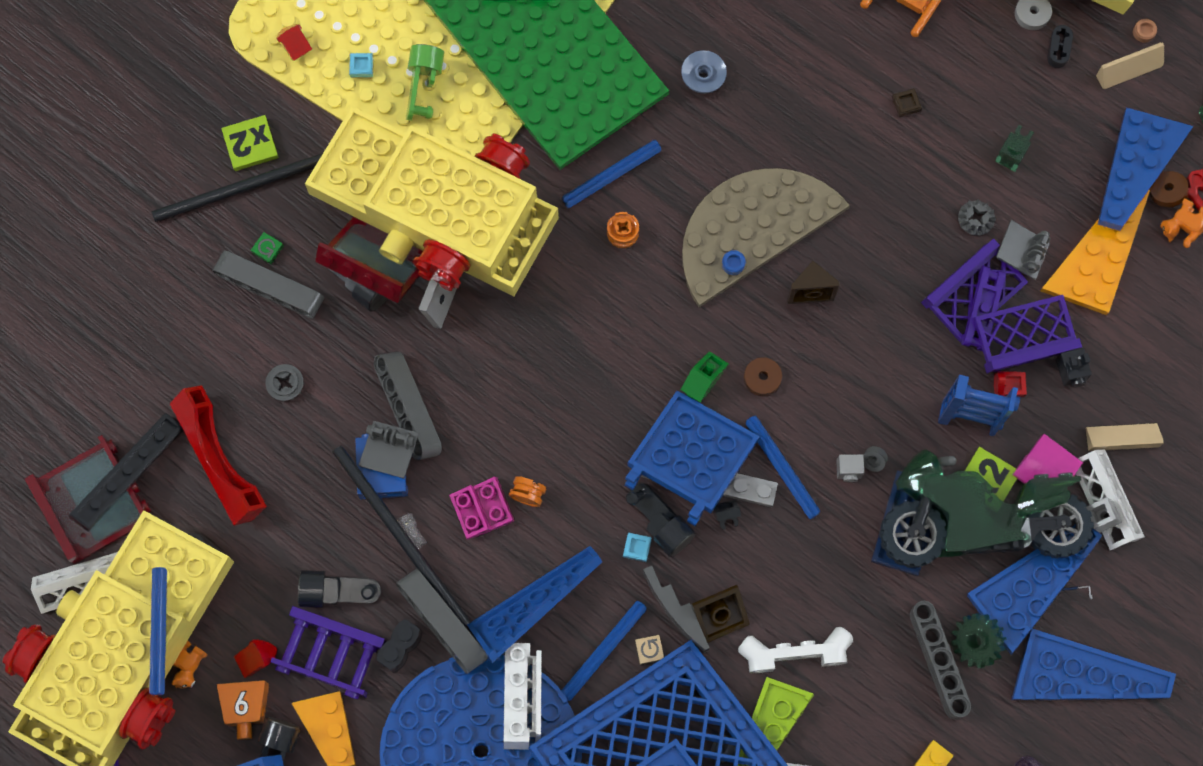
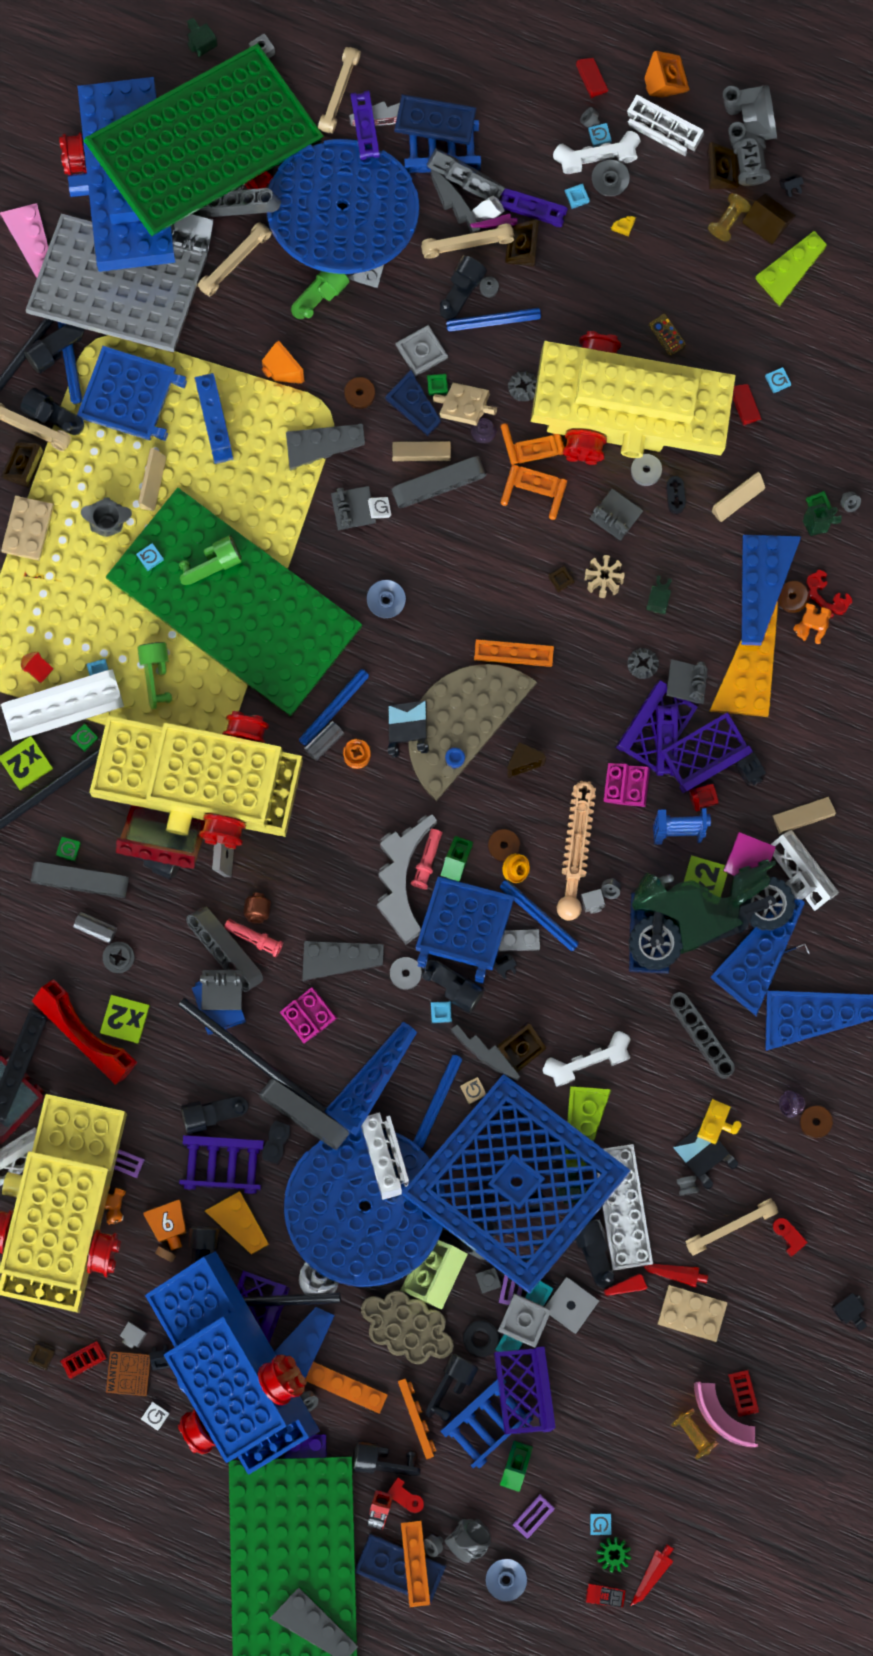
camera: 15 degrees left, 5 degrees up
(158, 631) = (93, 1184): blue axle -> none
(229, 742) = (165, 1254): none -> medium nougat tile
(230, 629) = (138, 1167): none -> medium lavender tile
(255, 657) = (165, 1183): red tile -> none
(268, 342) = (95, 927): none -> flat silver axle
(269, 454) = (124, 1019): none -> lime tile
(309, 89) = (62, 705): none -> white plate
(322, 132) = (84, 738): none -> green tile
(409, 525) = (254, 1044): clear pin -> none
(453, 408) = (261, 940): none -> coral pin
(458, 369) = (257, 908): none -> copper head
(527, 491) = (341, 992): orange wheel -> none
(532, 451) = (333, 958): none -> dark grey wing
(590, 206) = (324, 741): none -> flat silver axle
(608, 480) = (399, 966): none -> light grey piece
(641, 351) = (399, 851): none -> light grey arch
(664, 376) = (425, 868): none -> coral pin
(689, 212) = (408, 724): none -> black flag
(770, 405) = (516, 868): none -> light orange plate
(820, 465) = (569, 906): none -> light nougat gear
(832, 167) = (513, 653): none -> orange plate
(923, 346) = (626, 784): none -> dark pink slope
(967, 643) = (736, 1007): clear green gear -> none
(968, 111) = (598, 581): none -> tan gear
(986, 50) = (616, 514): none -> dark grey hinge
(1145, 30) = (742, 461): nougat tile -> none

